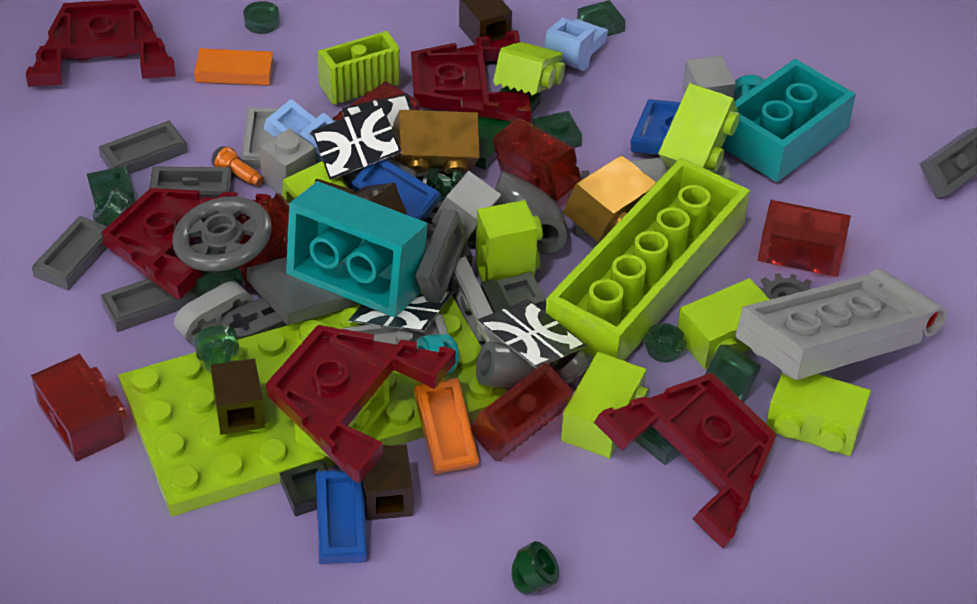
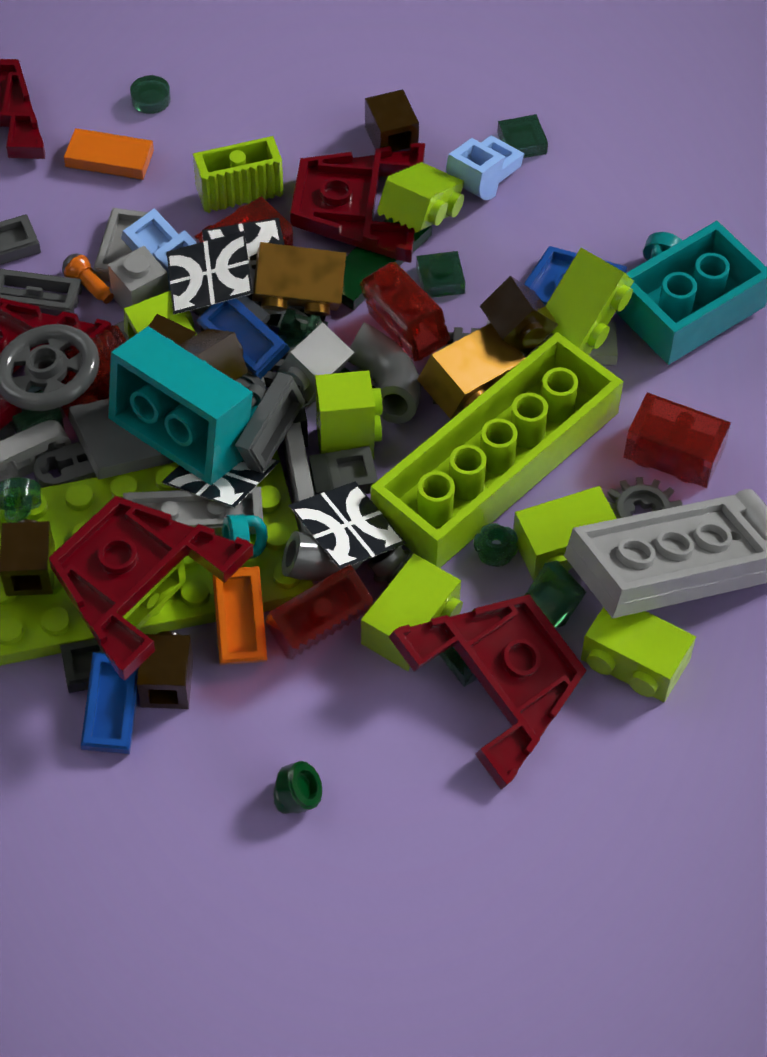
camera: 10 degrees right, 10 degrees up
(644, 146) = (518, 315): none -> dark brown brick
(710, 74) = (620, 235): light grey brick -> none

